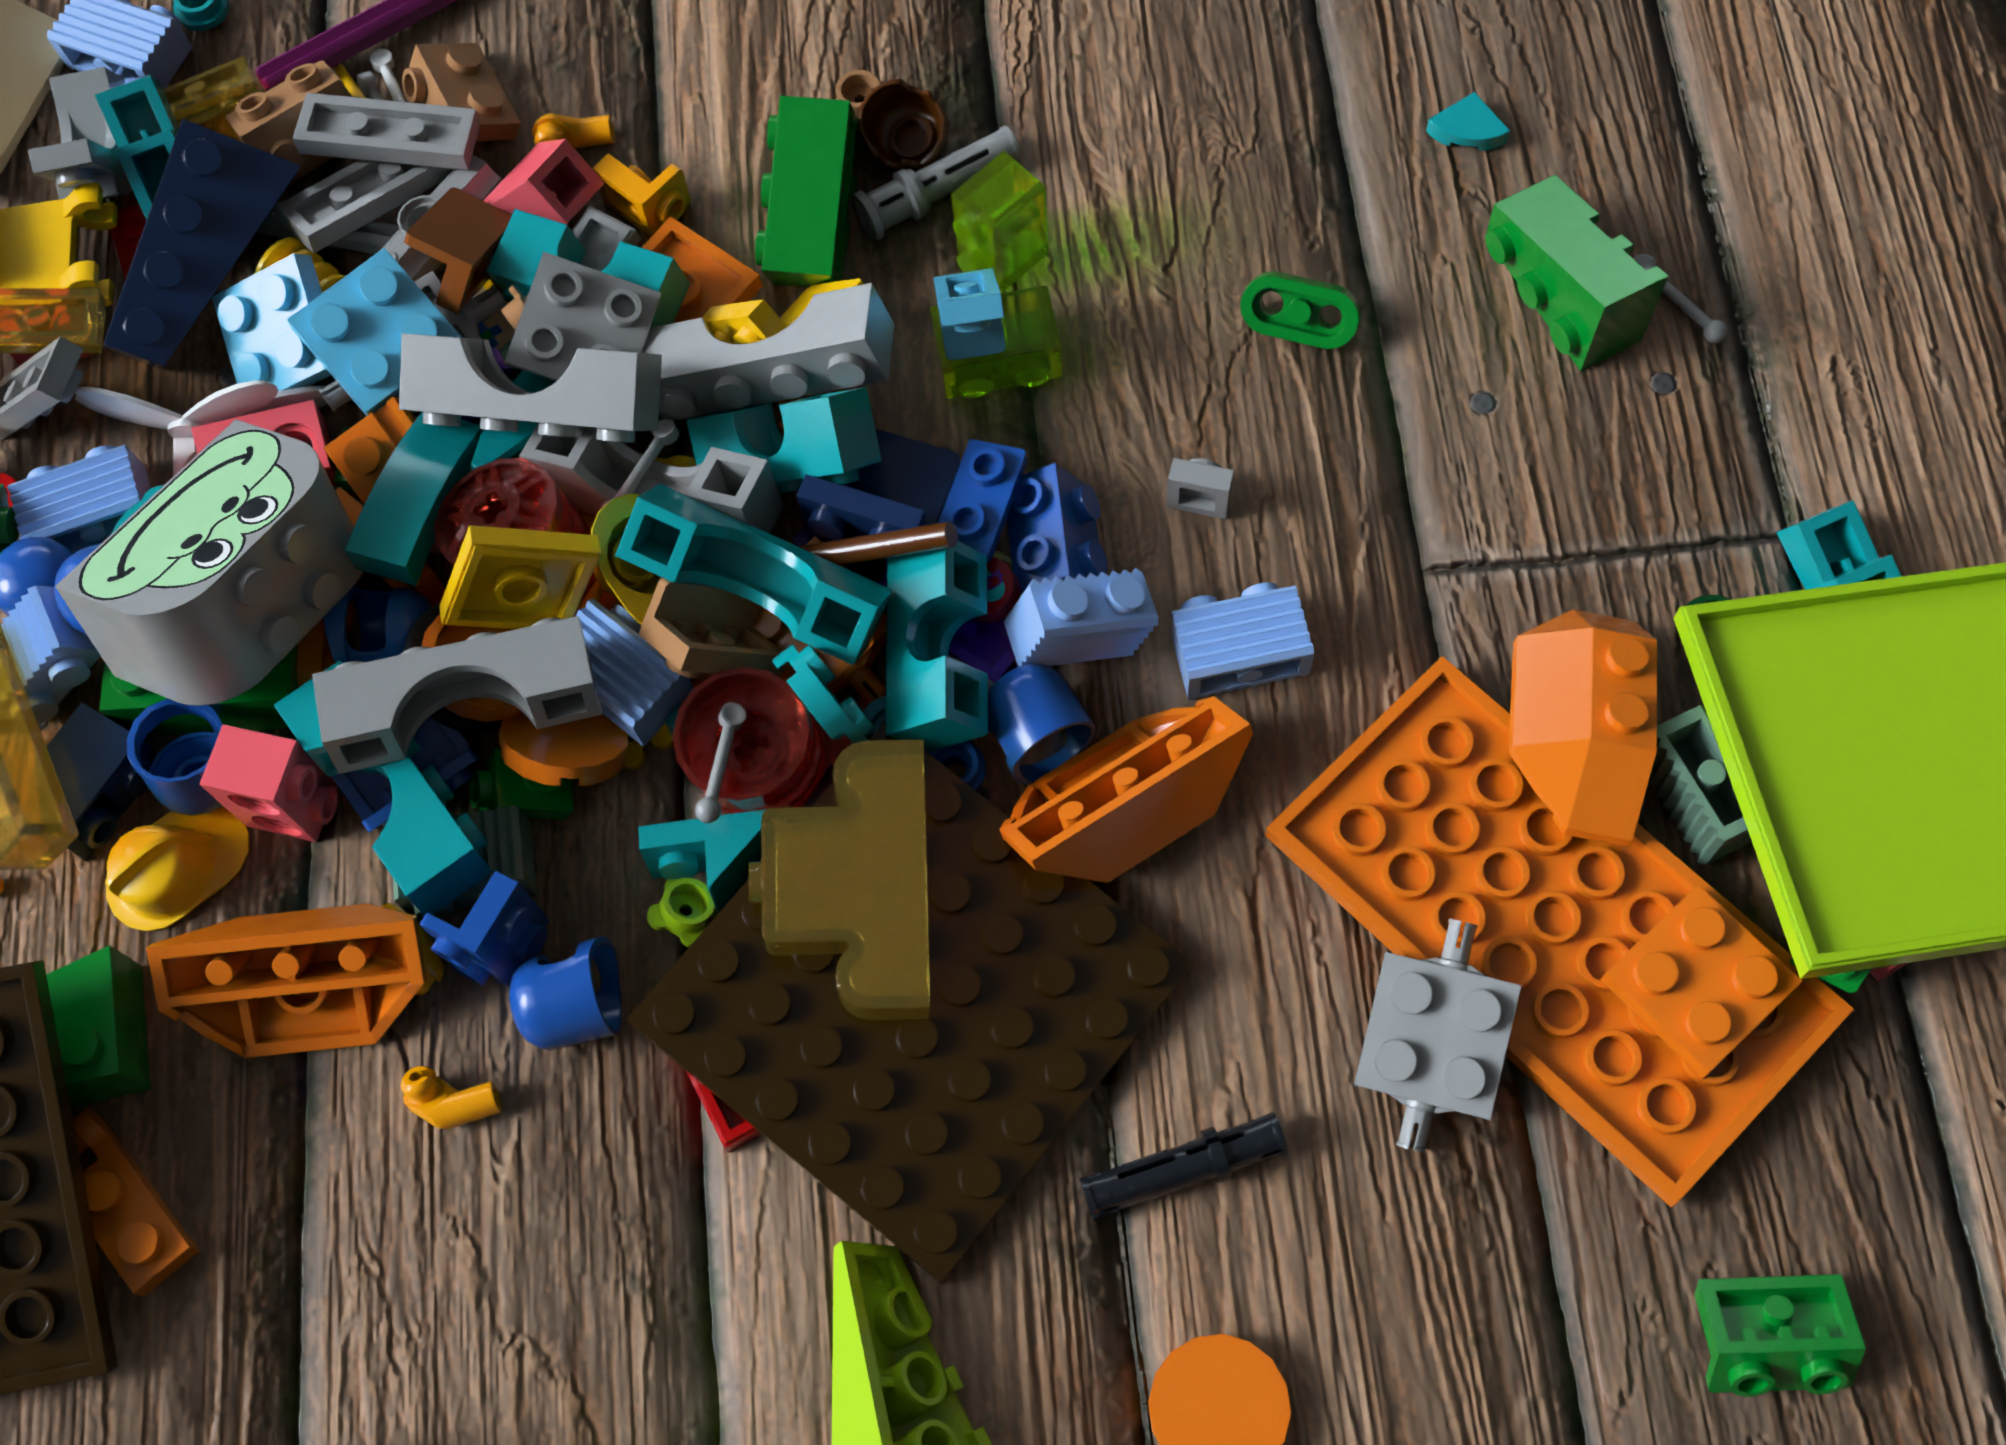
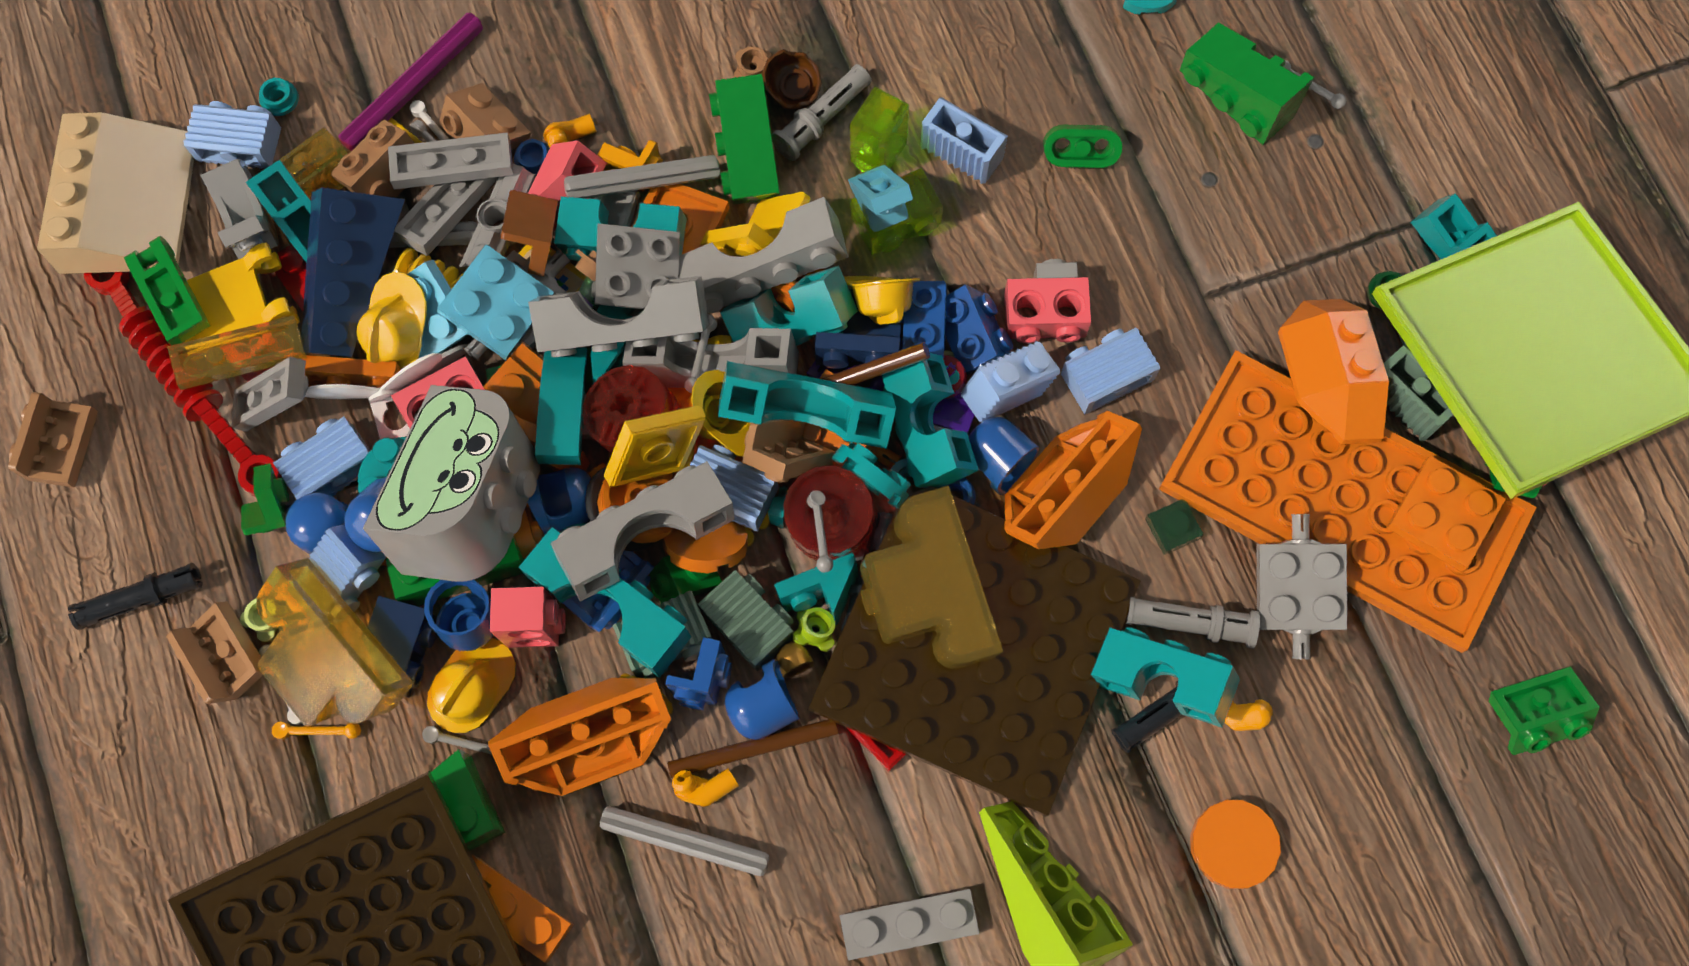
camera: 20 degrees left, 5 degrees up
(100, 922) = (433, 735): none -> light grey hinge
(143, 381) = (348, 371): none -> orange plate
(231, 332) = (394, 320): none -> yellow piece
(395, 1172) = (684, 841): none -> light grey axle
(506, 151) = (531, 155): none -> blue plate
(540, 1061) = (753, 747): none -> reddish brown bar
(587, 869) = (747, 619): none -> sand green brick
(638, 948) = (794, 659): none -> pearl gold hinge
(644, 211) = (642, 177): none -> light grey axle
(680, 1390) = (909, 924): none -> light grey plate
(924, 450) = (882, 297): none -> yellow piece
(1122, 261) = (962, 140): none -> light blue brick
(1178, 514) = (1045, 299): none -> coral brick
(1228, 1142) = (1132, 661): none -> teal arch
(1272, 897) = (1174, 526): none -> clear green plate
(1287, 1057) = (1213, 623): none -> light grey pin
(1289, 1212) = (1249, 715): none -> light orange arm

